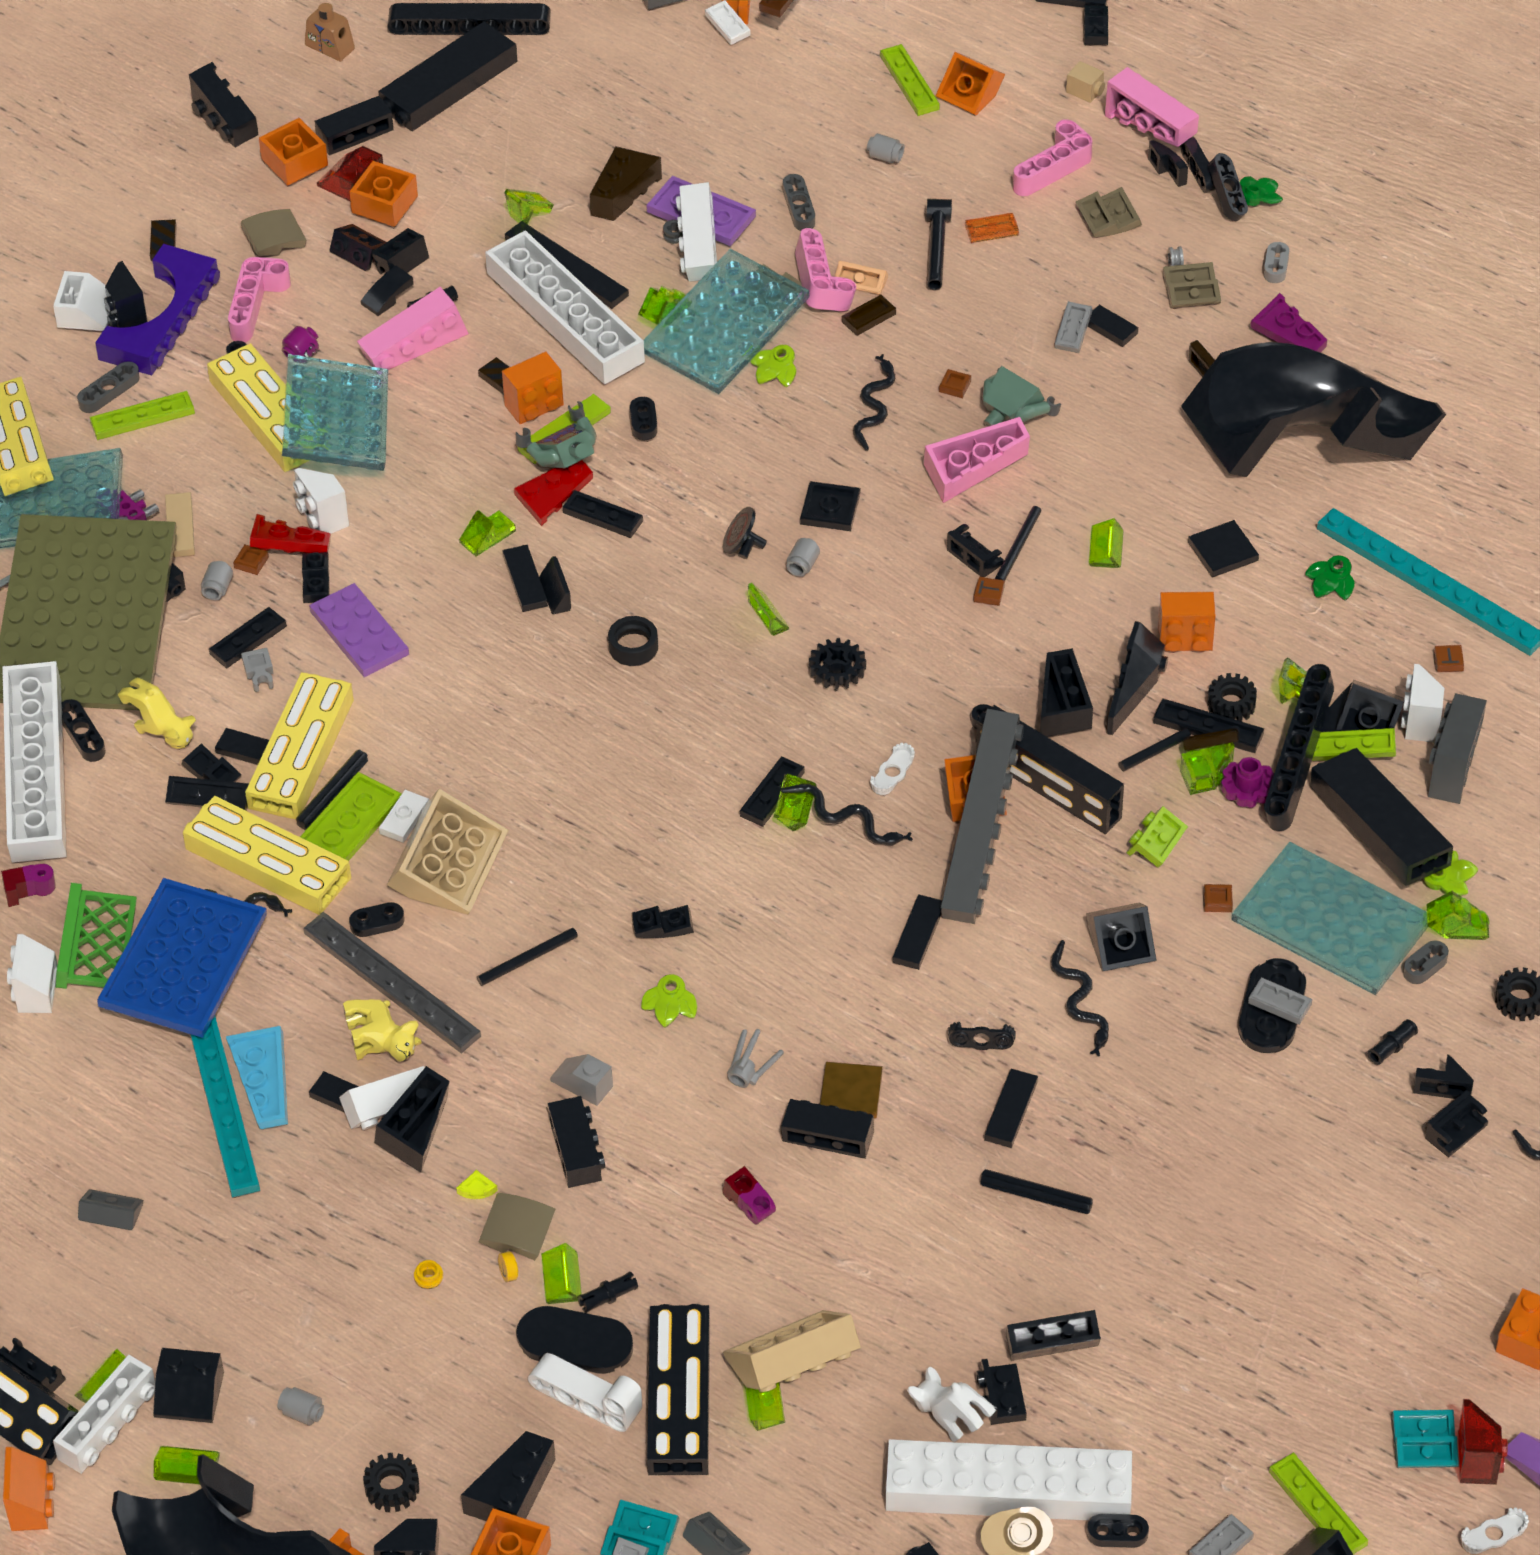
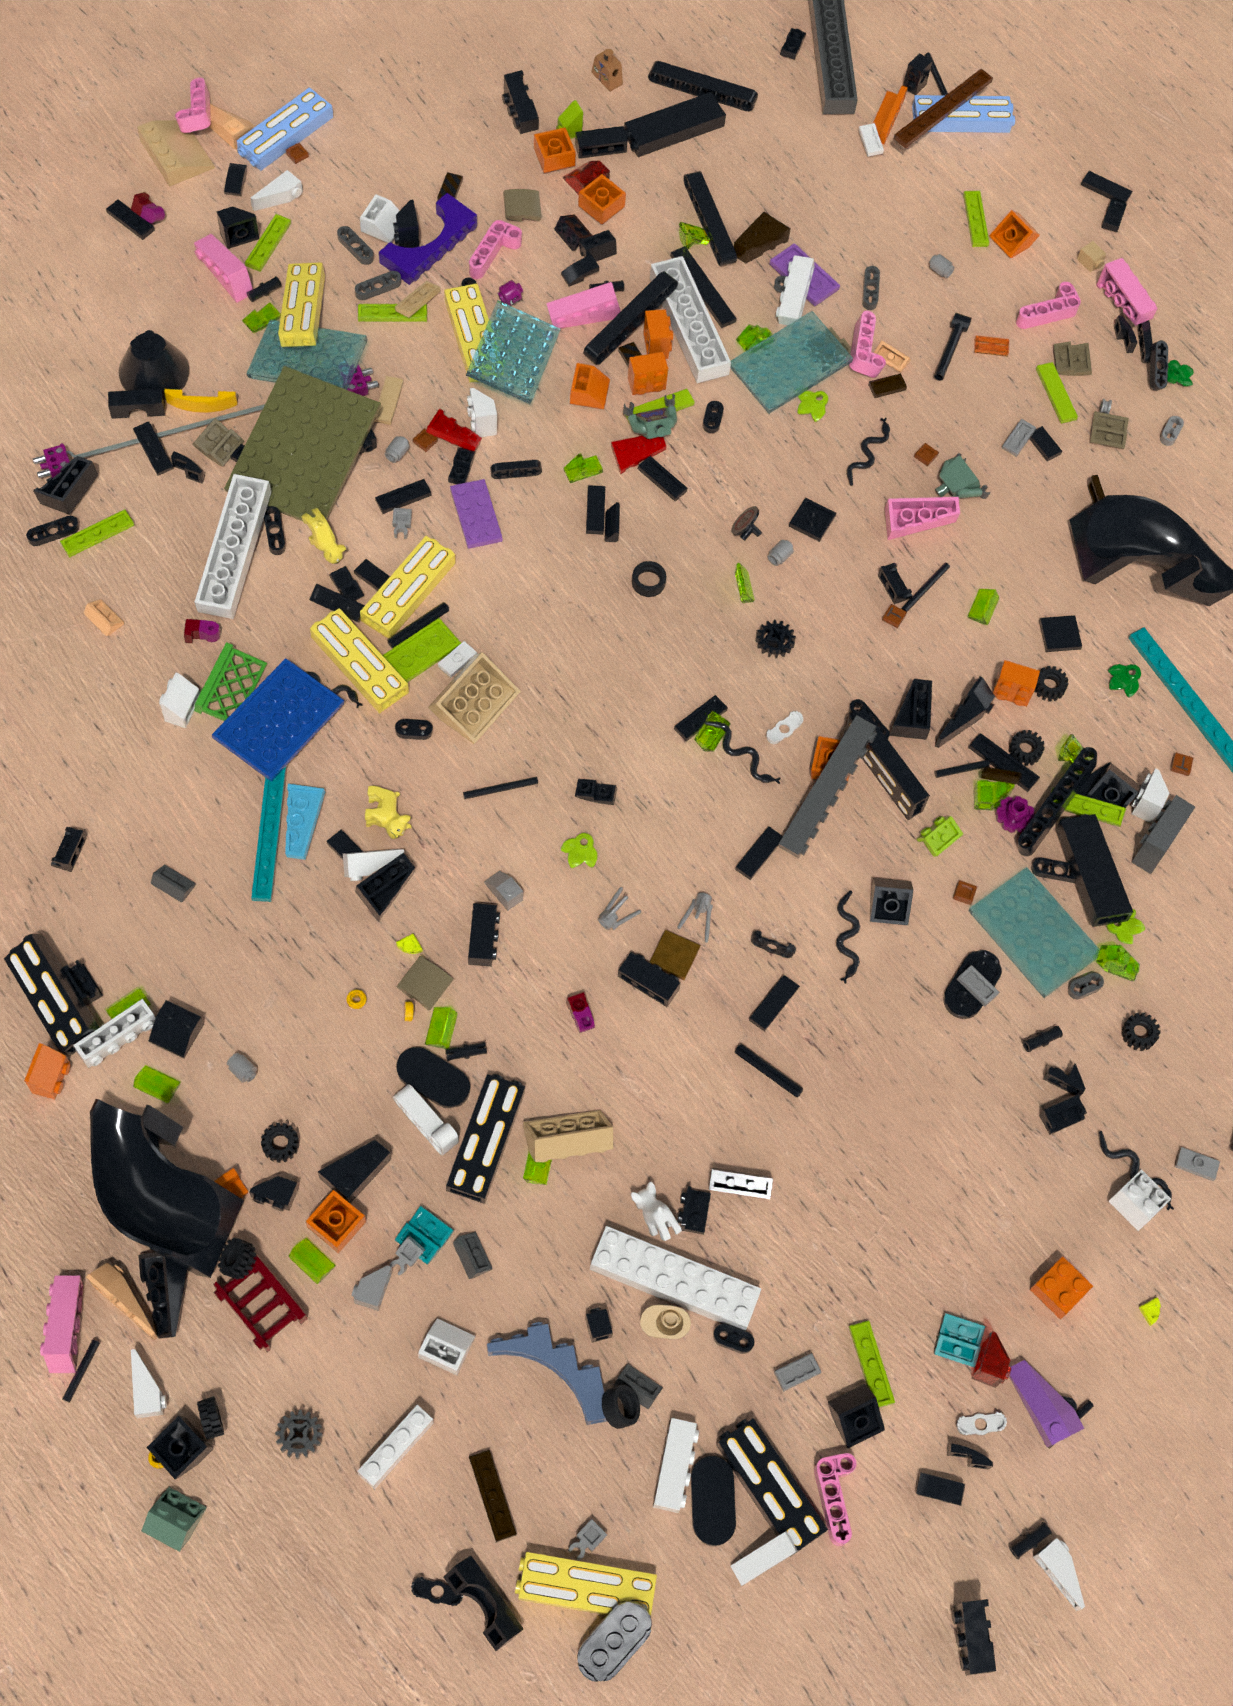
camera: 10 degrees right, 15 degrees up
(41, 339) = (356, 252): none -> dark grey beam
(172, 387) = (417, 298): none -> tan tile
(303, 104) = (571, 119): none -> lime slope
(378, 564) = (524, 469): none -> black beam
(392, 982) = (407, 778): flat silver tile -> none
(457, 428) = (589, 387): none -> orange slope
(482, 326) = (630, 317): none -> black beam
(525, 331) = (657, 332): none -> orange brick
(543, 177) = (710, 218): none -> black beam
(864, 1016) = (702, 904): none -> light grey plant
(1103, 260) = (1056, 393): none -> lime tile
(1235, 600) = (1055, 675): none -> black tyre
(1286, 326) = (1162, 483): magenta wing -> none
(1326, 842) = (1052, 875): none -> black beam

